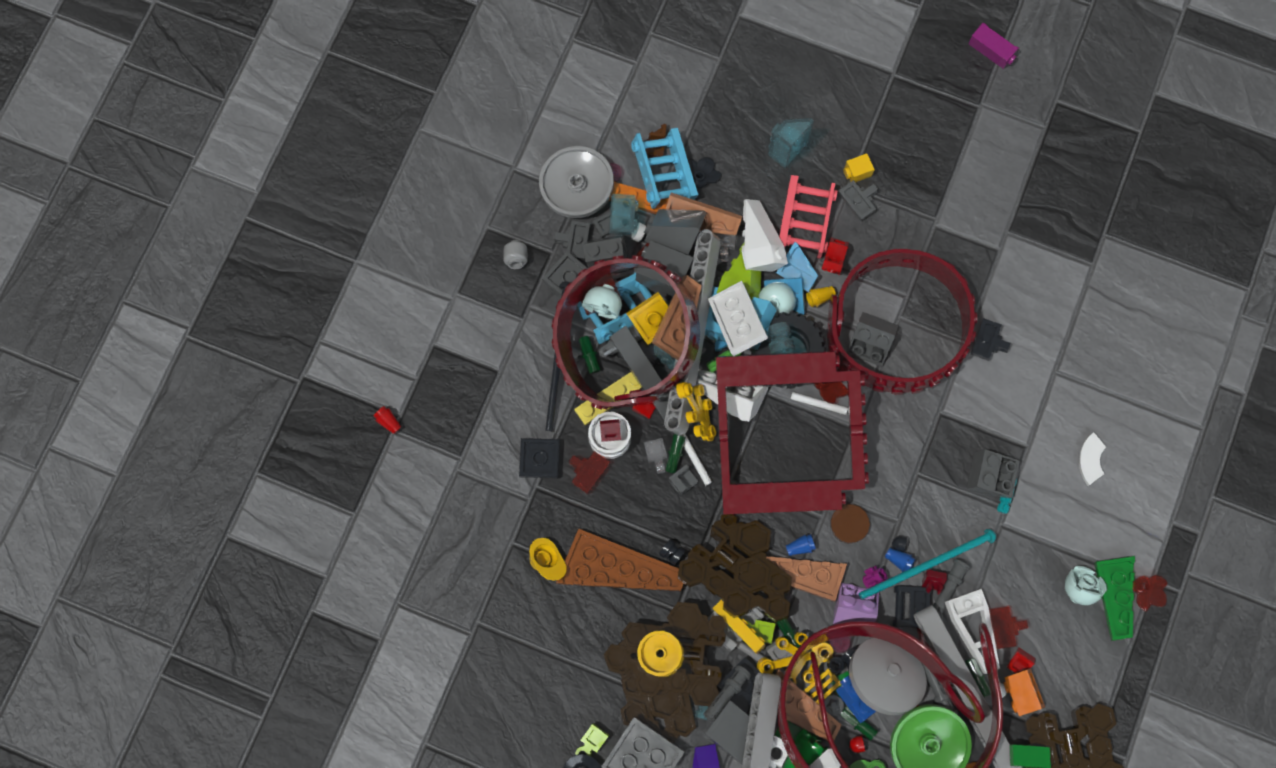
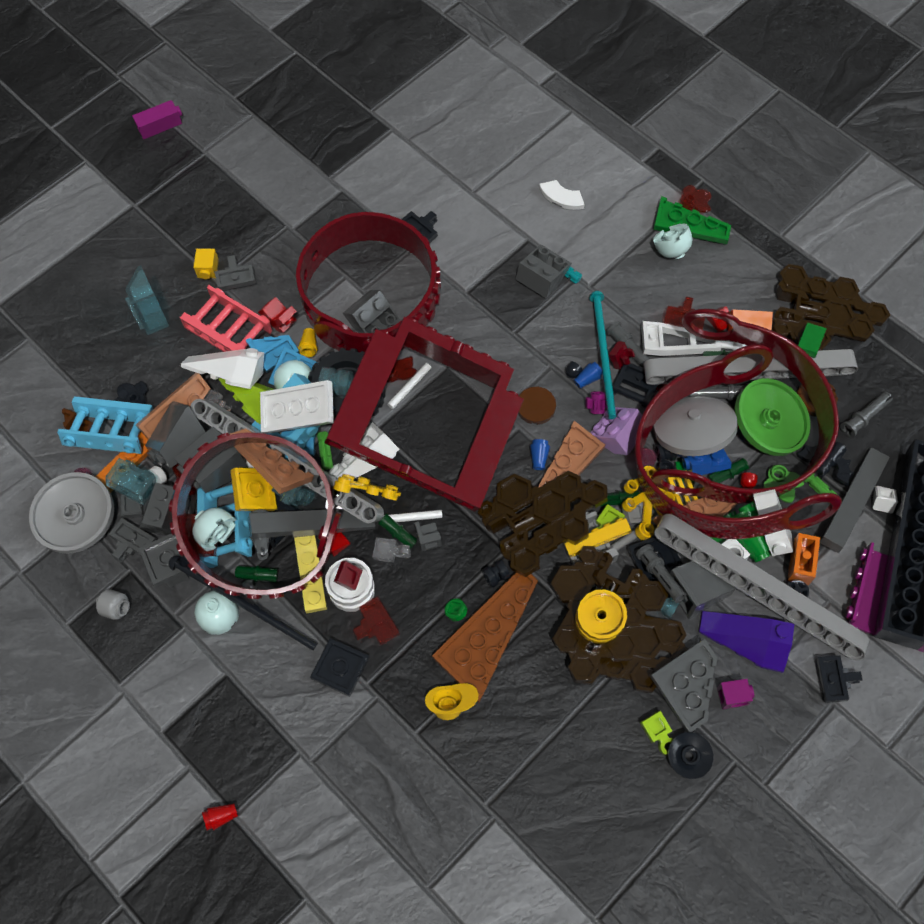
camera: 65 degrees left, 10 degrees down
(539, 339) = (215, 613): none -> light aqua cylinder
(626, 532) = (455, 609): none -> green tile

